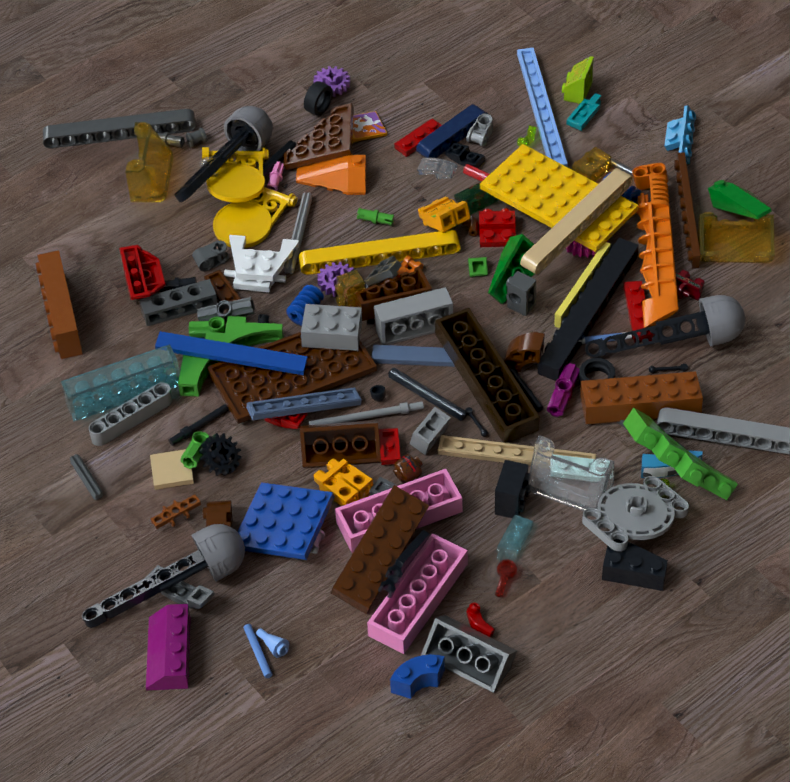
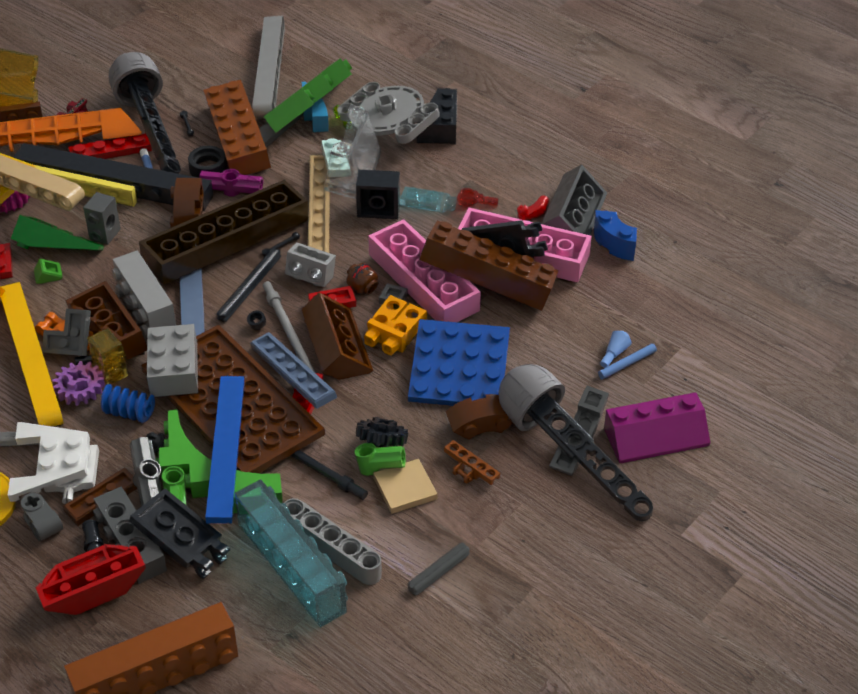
camera: 105 degrees left, 5 degrees down
(168, 316) = (180, 532): none -> black tile

